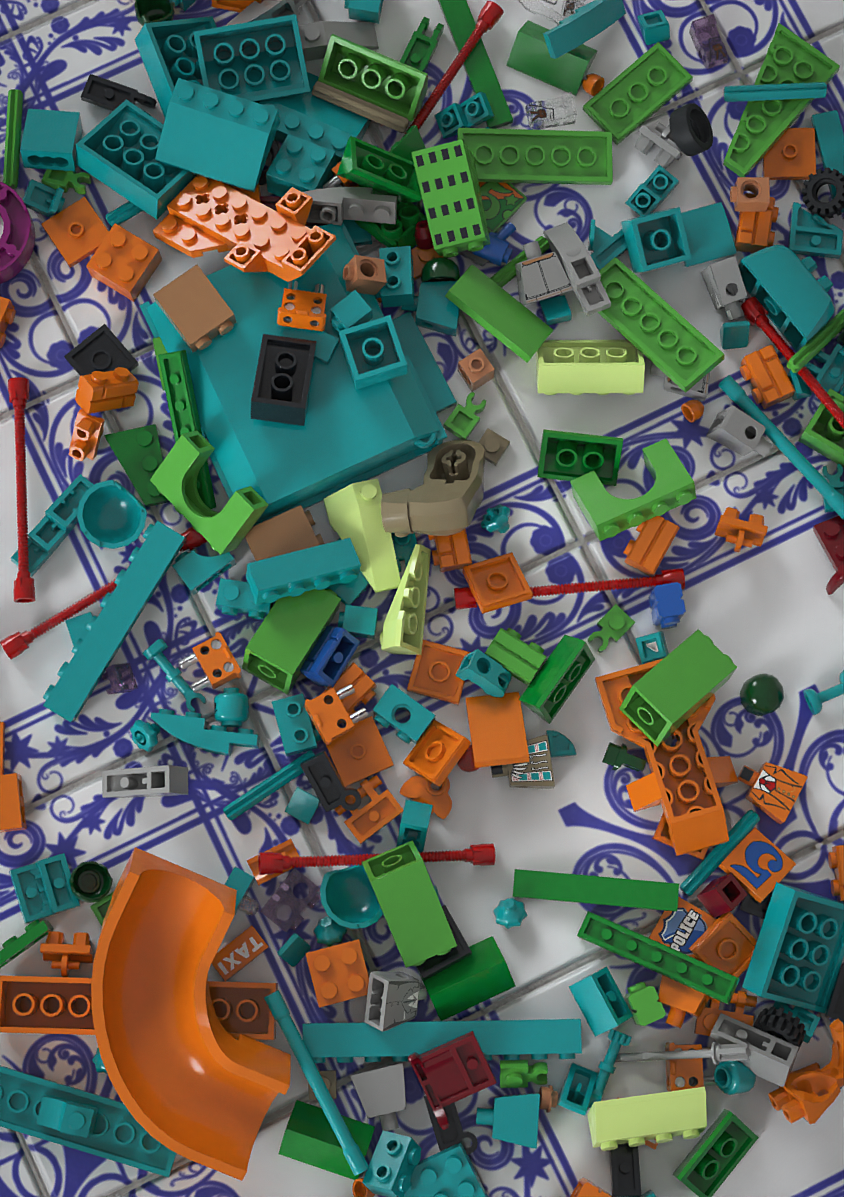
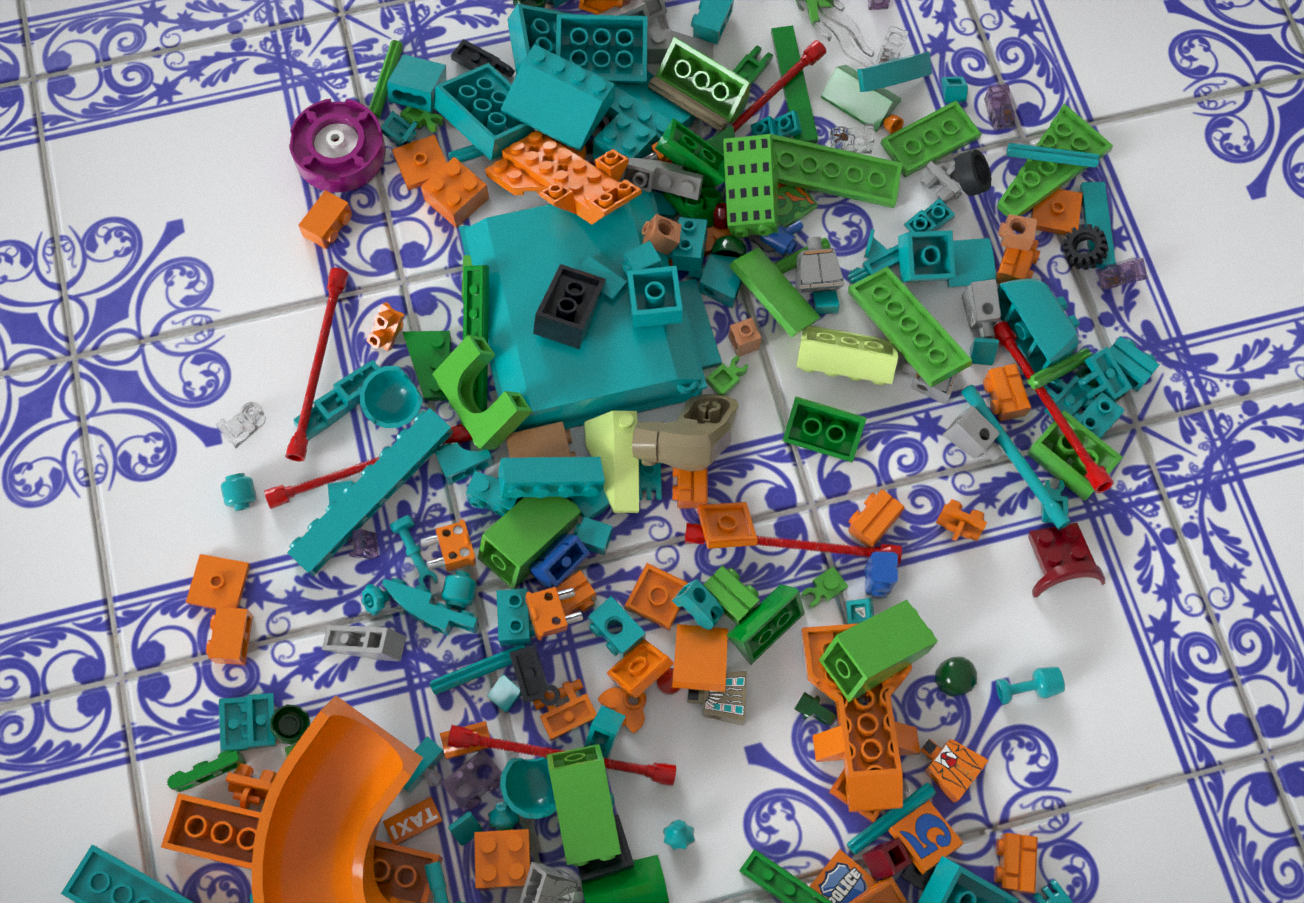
camera: 10 degrees right, 10 degrees down
(100, 353) = (415, 269): black plate -> none
(106, 390) = (413, 291): orange brick -> none
(195, 308) = (505, 232): medium nougat brick -> none
(303, 308) = (599, 249): orange piece -> none
(359, 753) = (568, 655): orange plate -> none
(406, 617) = (637, 538): yellowish green wedge -> none
(494, 446) = (748, 407): dark tan plate -> none
(496, 519) = (737, 470): teal piece -> none
(559, 745) = (757, 686): teal tile -> none
(578, 268) = (853, 268): light grey slope -> none
(596, 890) = (766, 830): green tile -> none
(613, 515) = (845, 483): bright green arch -> none
(692, 410) = (934, 409): orange hinge -> none
(801, 388) = (1037, 405): teal slope -> none
(813, 235) = (1068, 280): teal wing -> none

